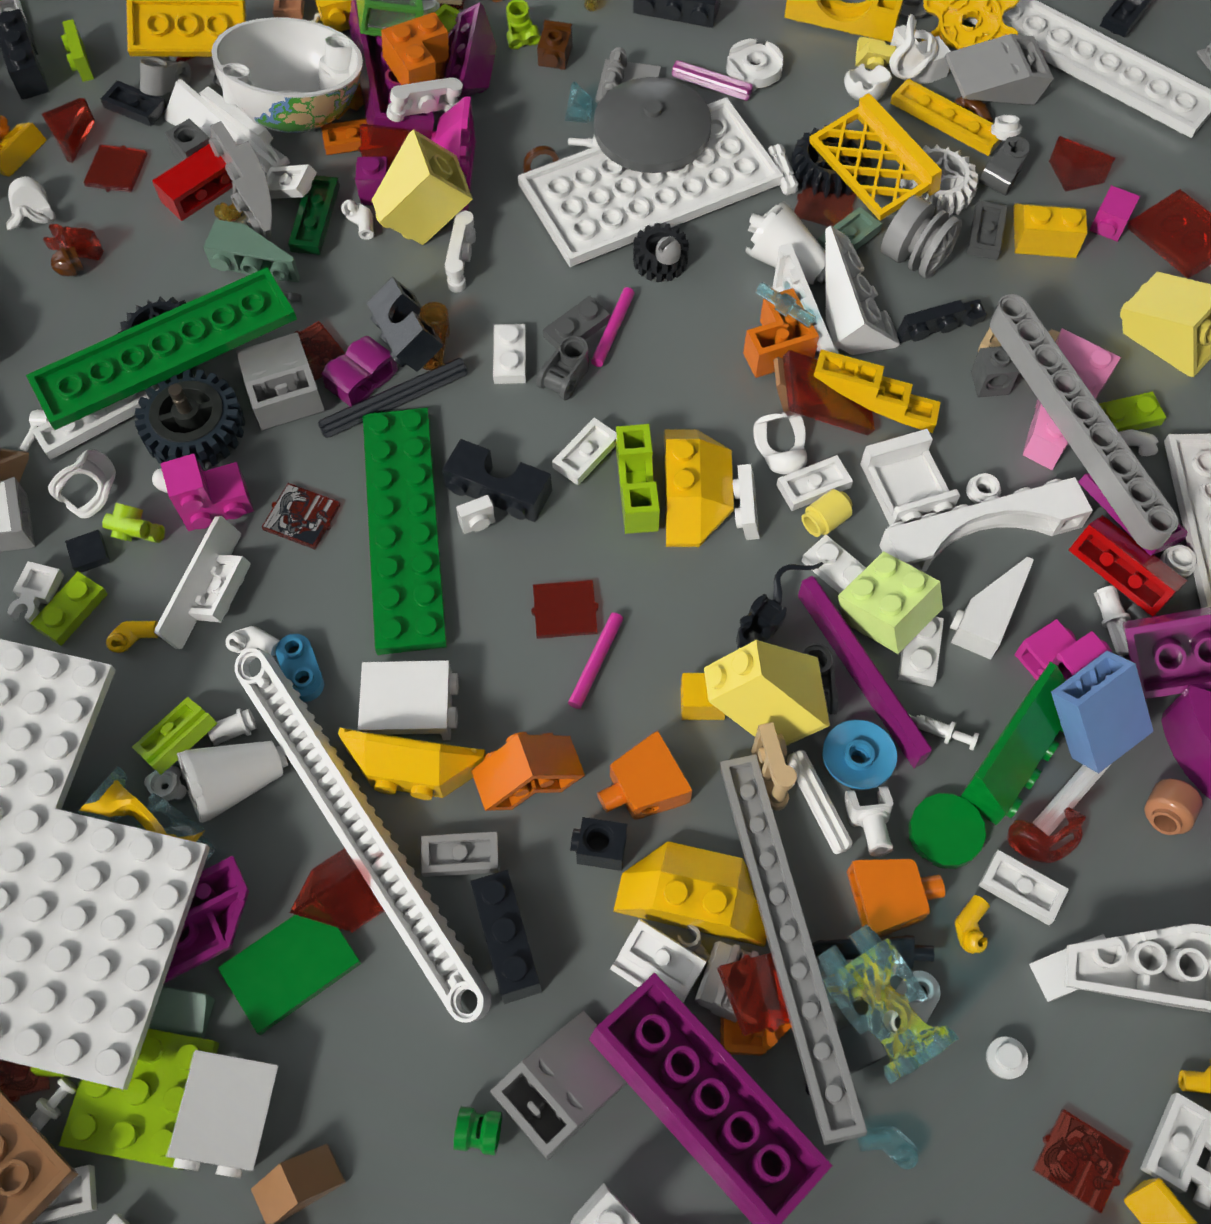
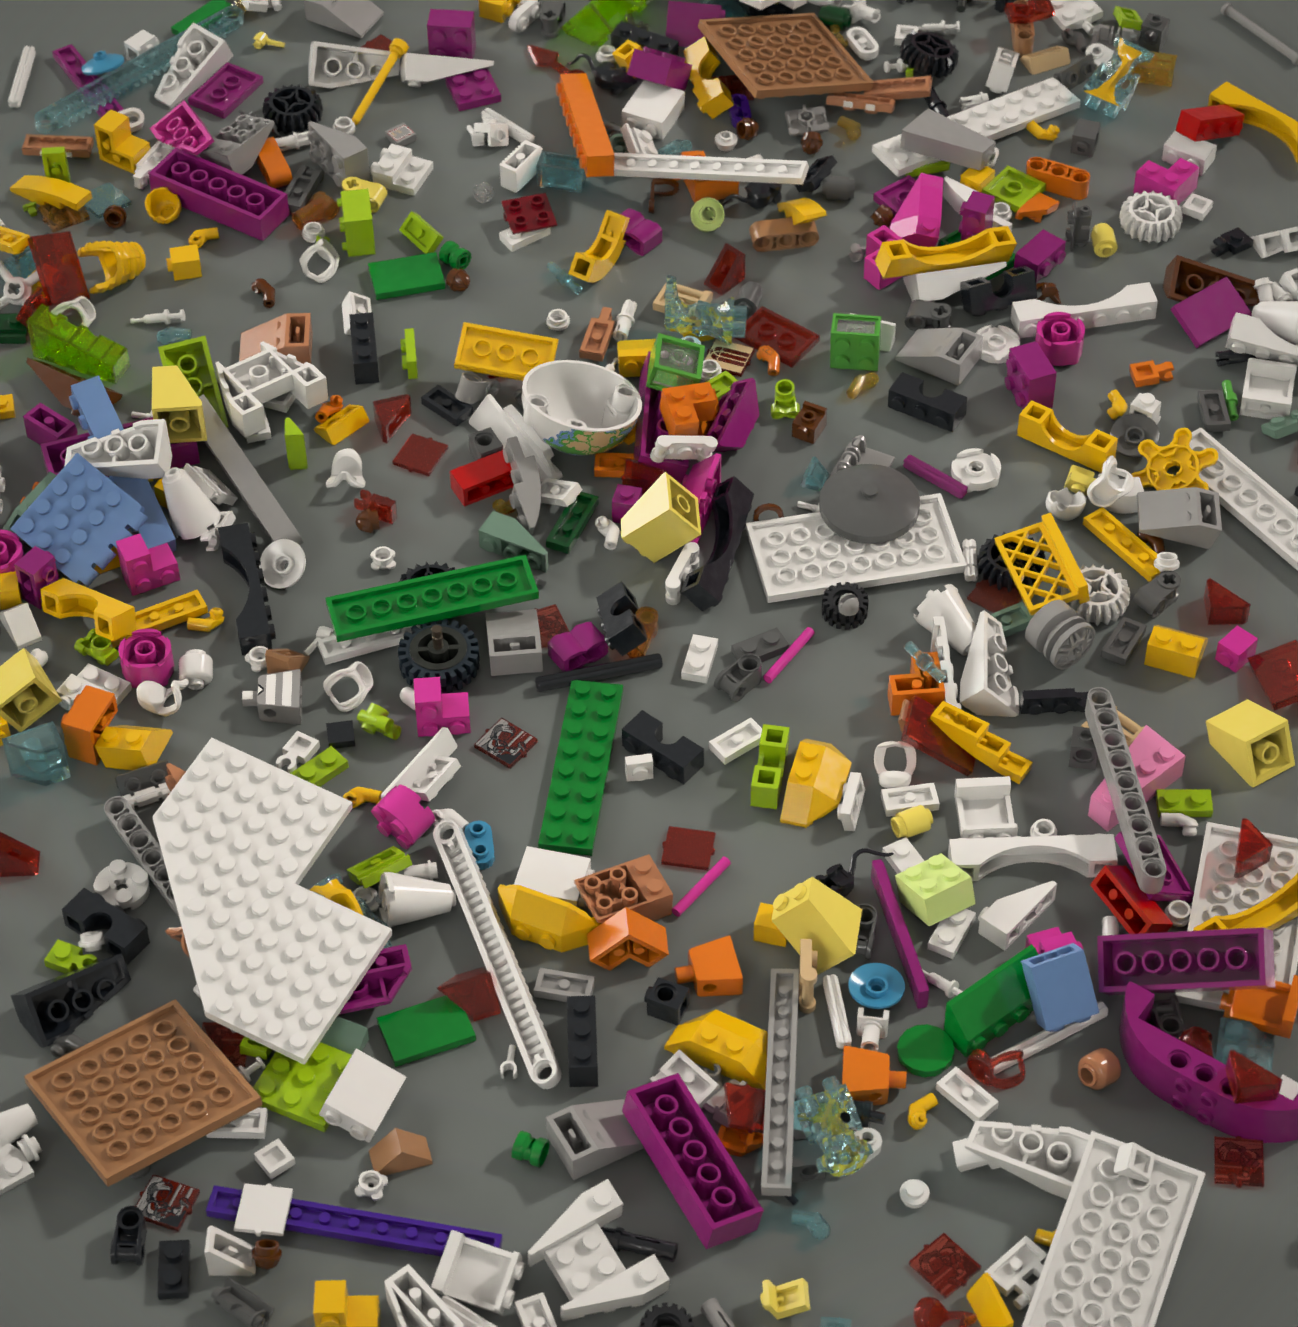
camera: 15 degrees right, 15 degrees down
(95, 305) = (383, 558): none -> white plate
(189, 655) = (402, 816): none -> dark pink brick
(415, 989) = (509, 1063): none -> white hand
(496, 160) = (730, 508): none -> black arch
(506, 698) = (629, 885): none -> nougat slope

